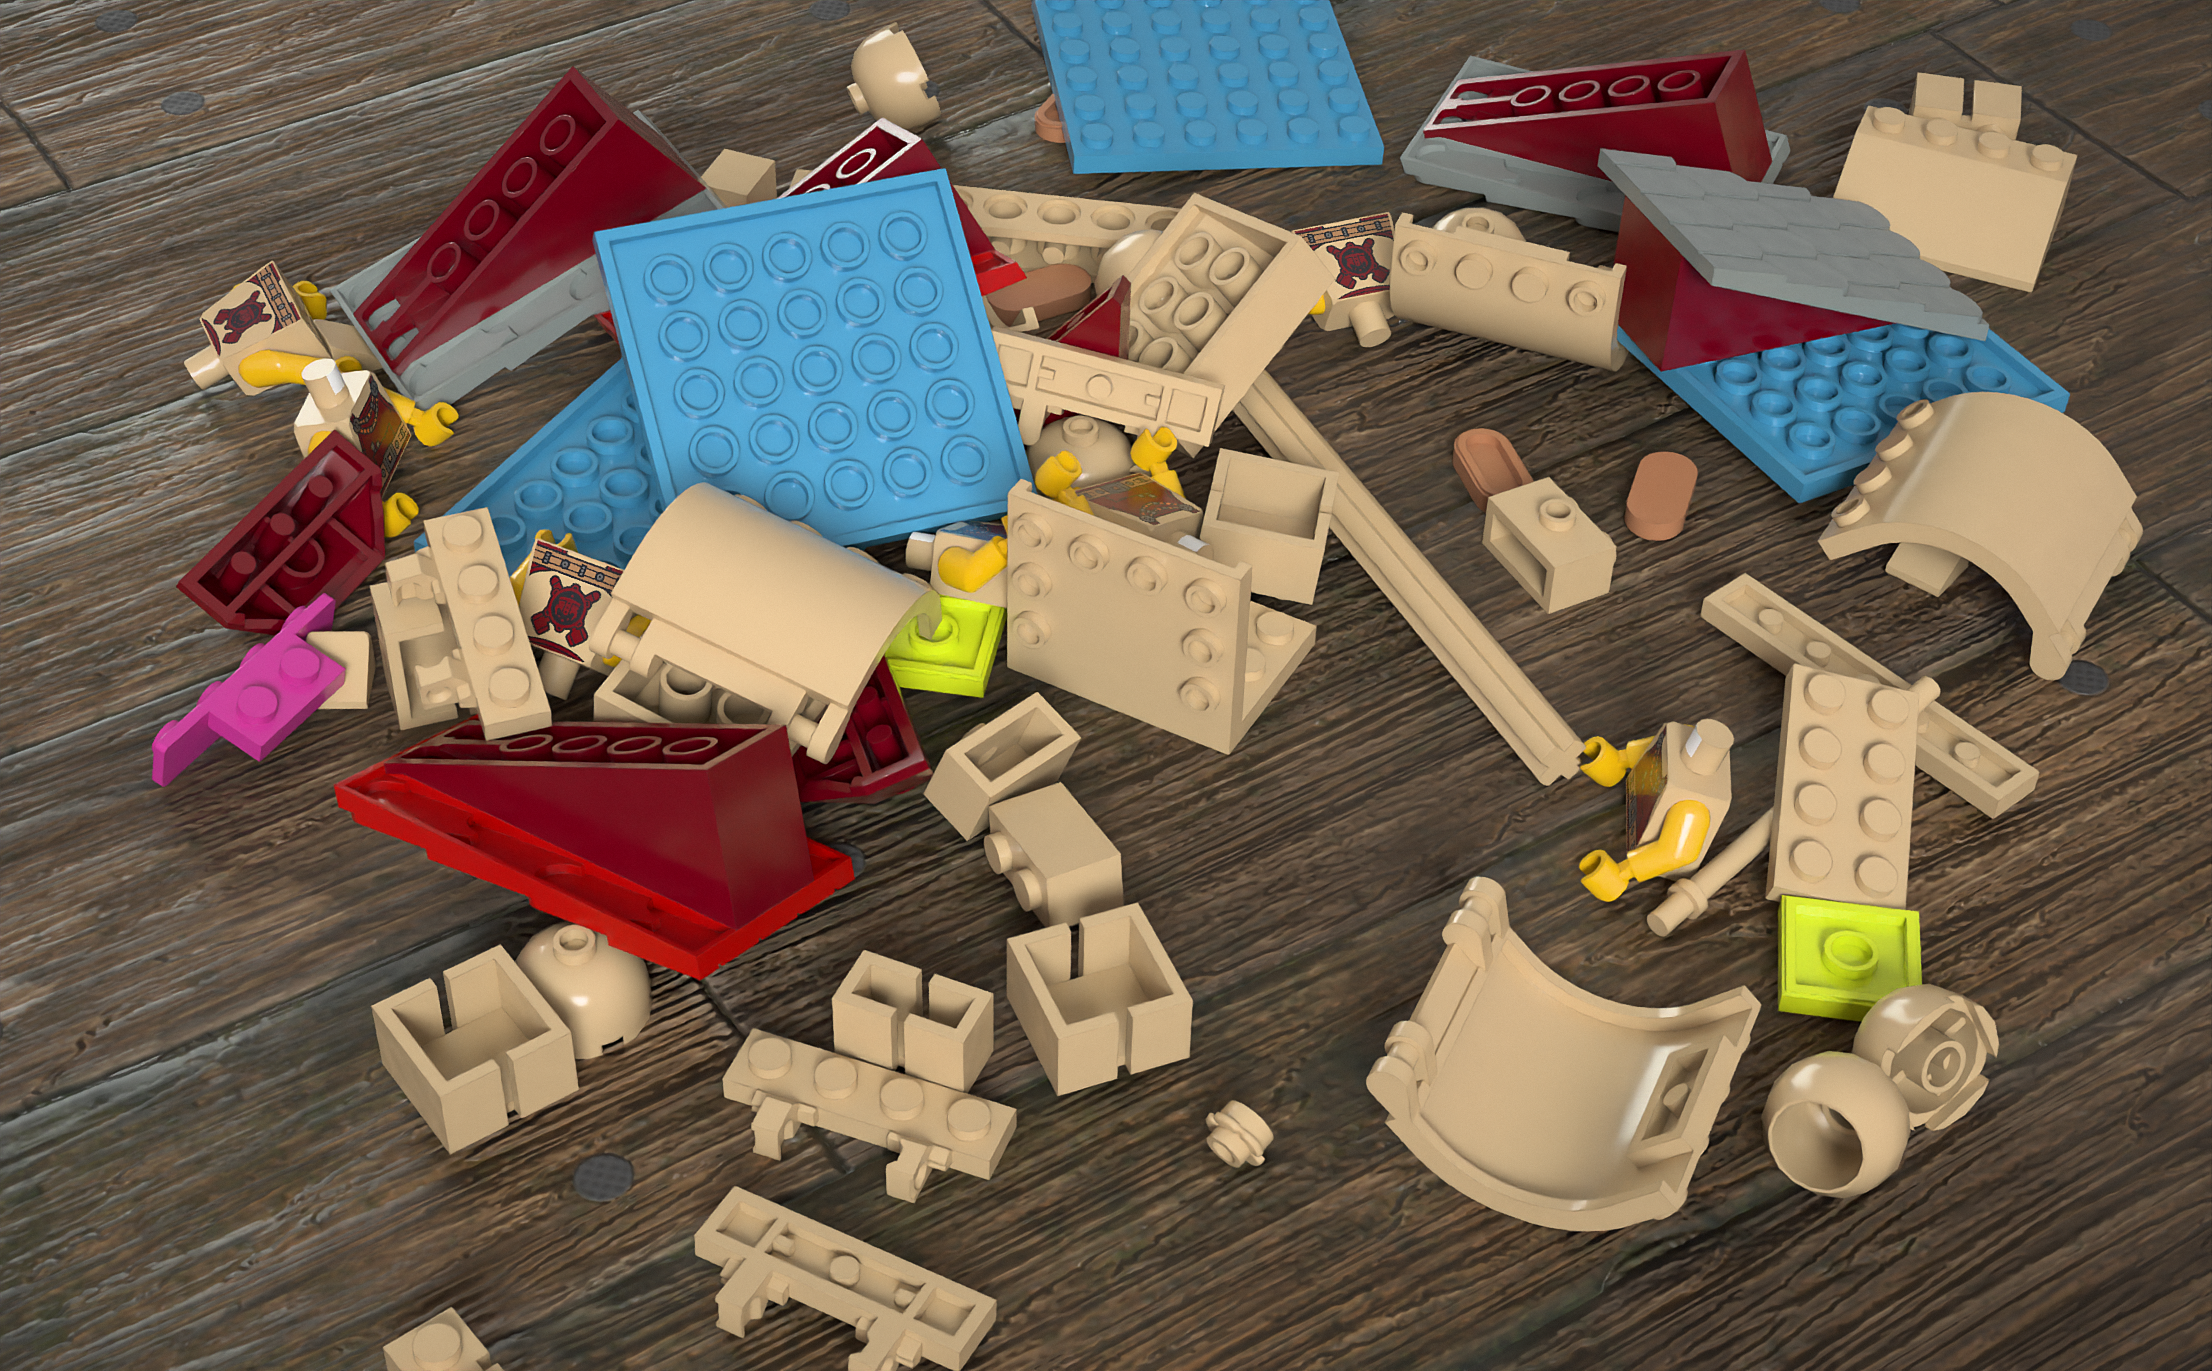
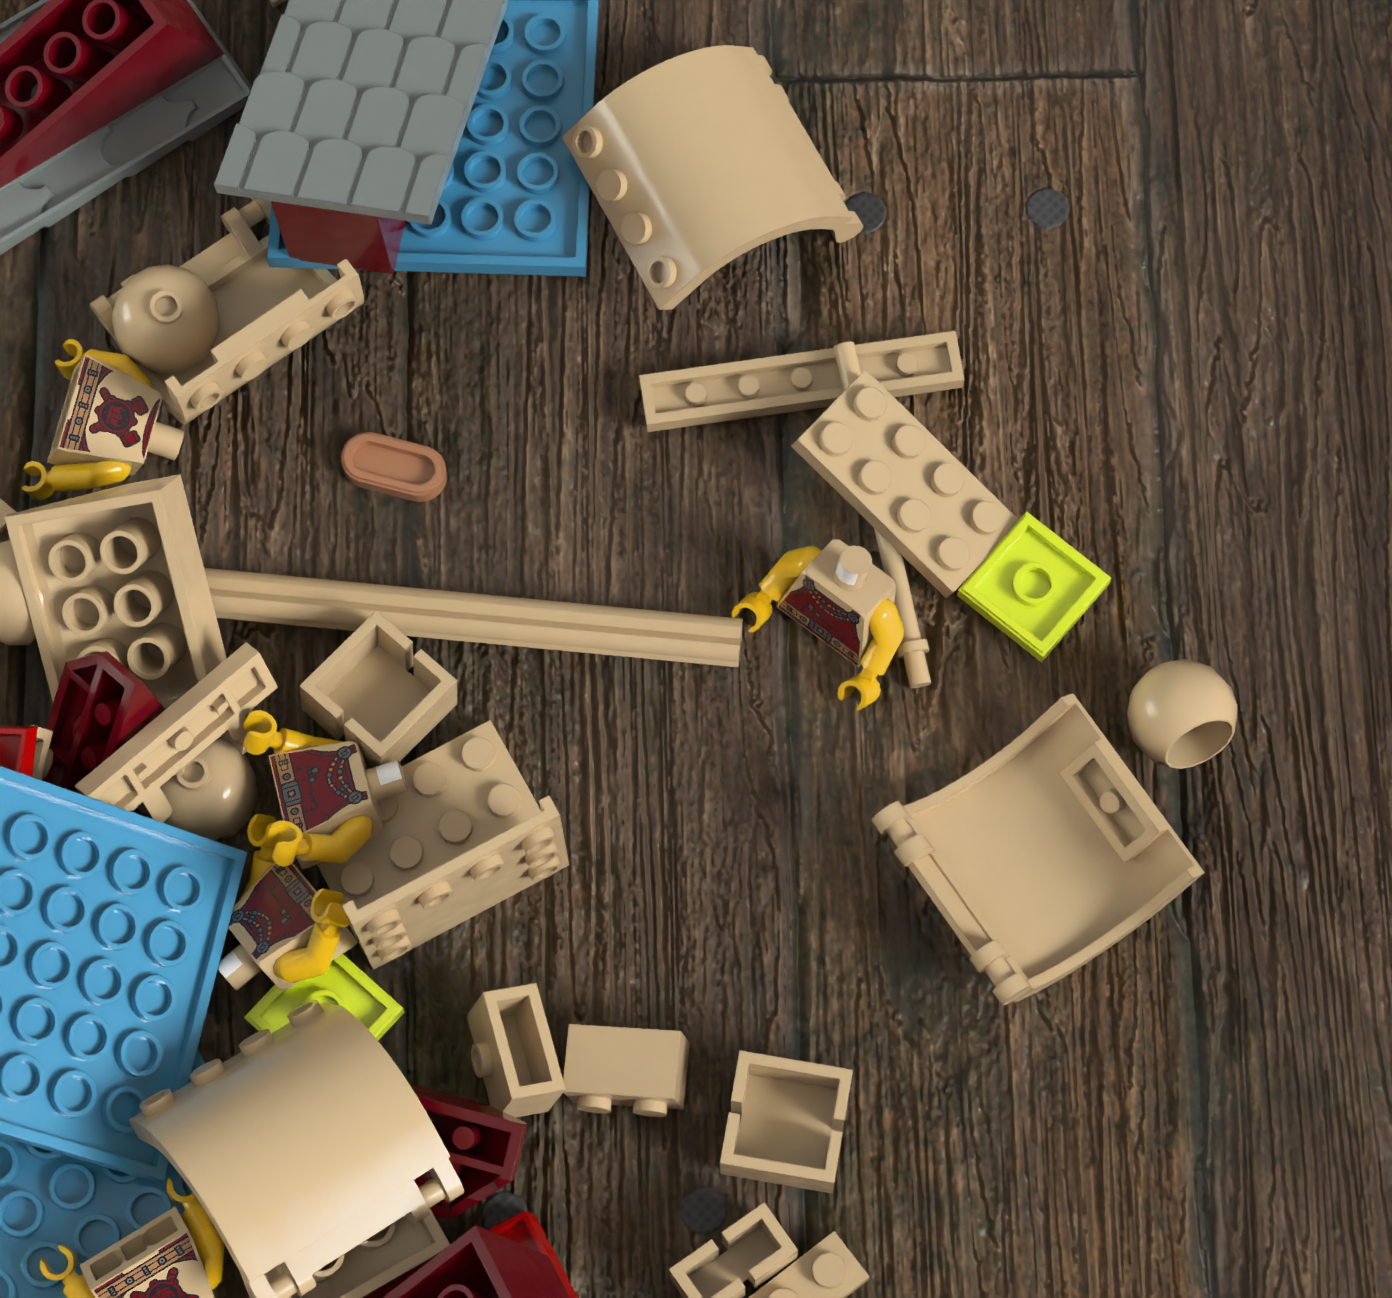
camera: 55 degrees left, 30 degrees up
(1238, 1135) = (943, 1095): tan plate -> none
(1549, 545) = (514, 489): tan brick -> none
(1661, 496) = (502, 363): nougat tile -> none
(1932, 1050) = (1147, 611): tan cylinder -> none

